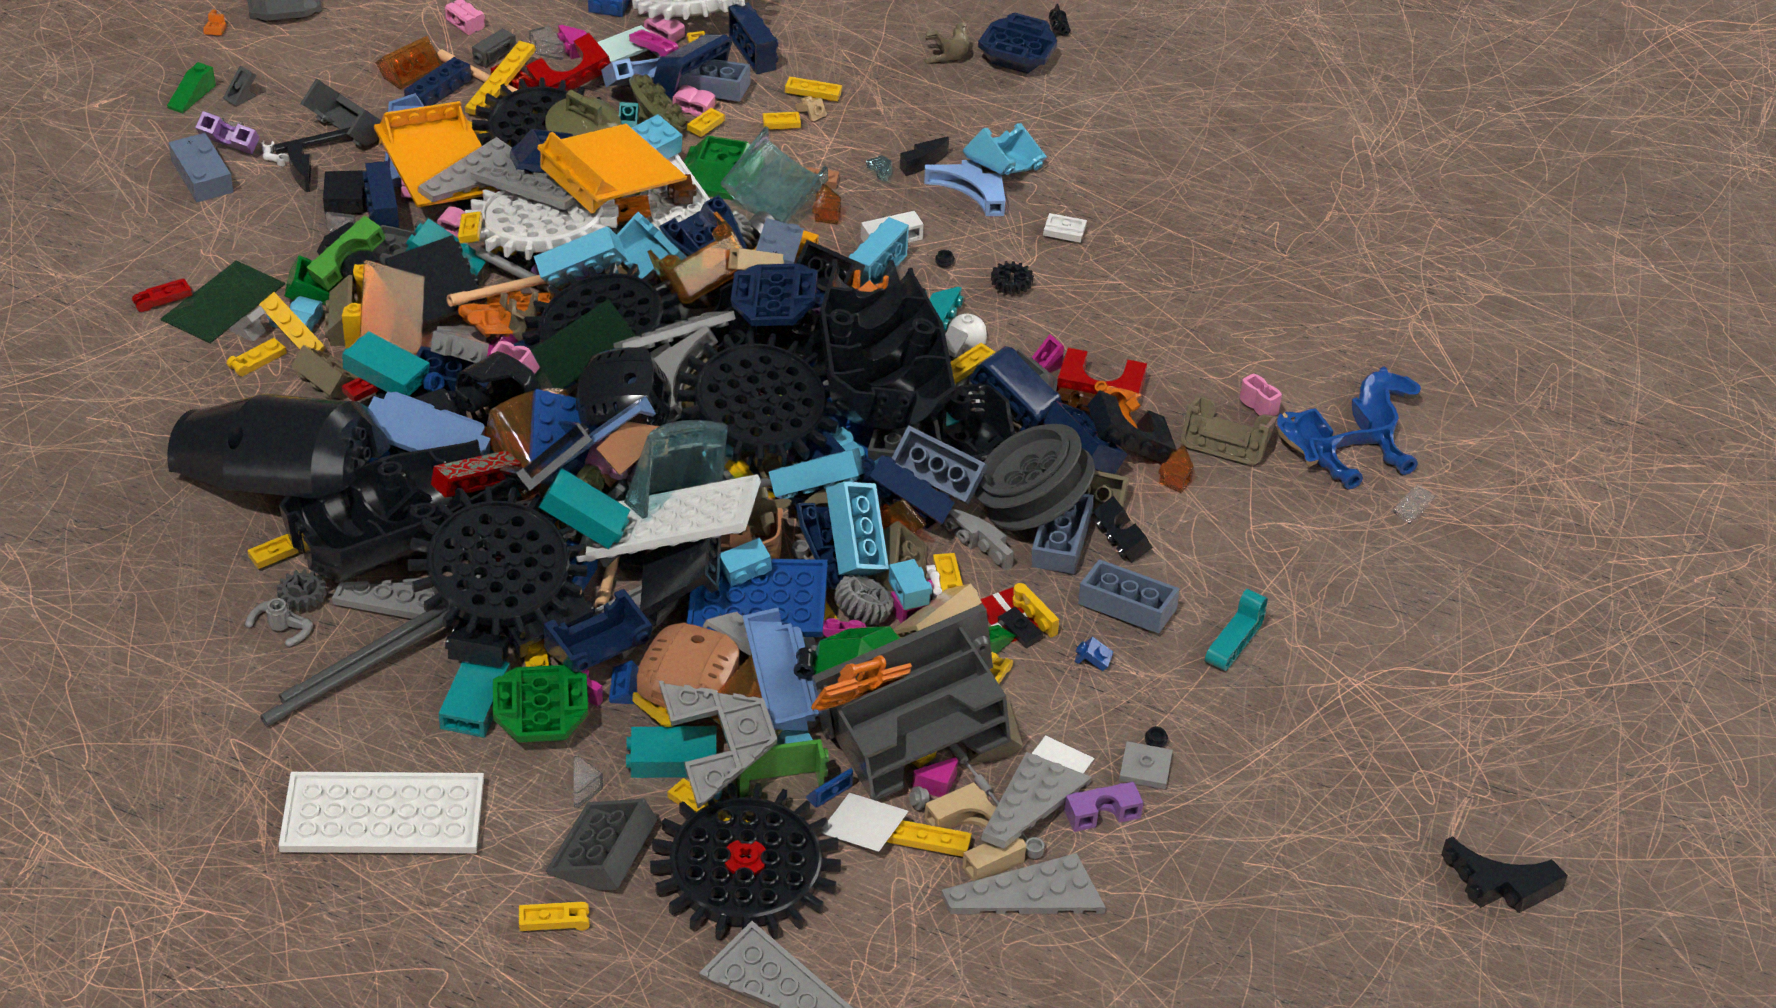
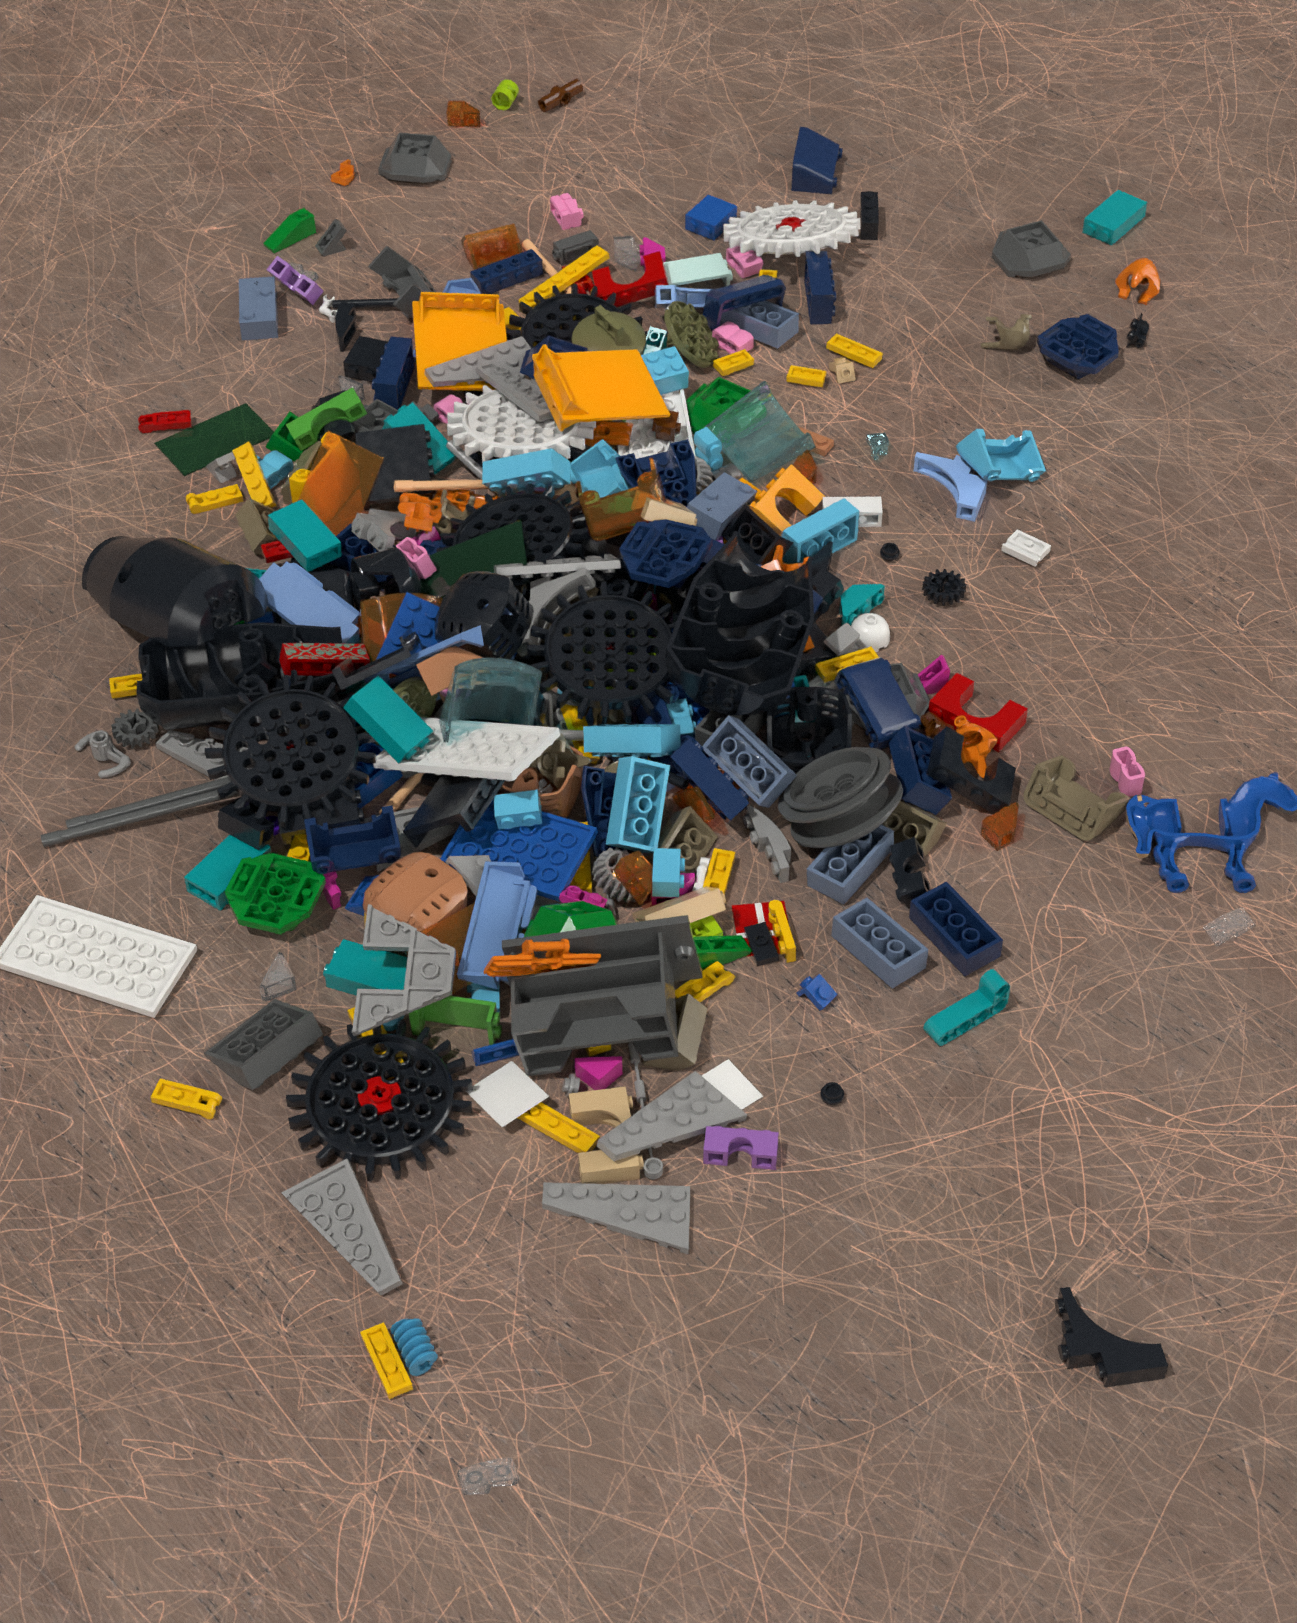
camera: 25 degrees right, 5 degrees up
(433, 381) = (341, 560): blue tile -> none
(470, 227) = (444, 419): yellow plate -> none
(653, 42) = (718, 272): dark pink plate -> none
(733, 197) = (708, 448): none -> medium azure brick
(805, 660) = (519, 923): black bush -> none
(833, 220) = (793, 487): none -> light orange arch
(885, 594) = (635, 875): none -> clear orange slope
(923, 154) = (925, 441): black slope -> none
(1145, 765) = (807, 1118): light grey plate -> none
(1188, 566) = (955, 928): none -> dark blue brick

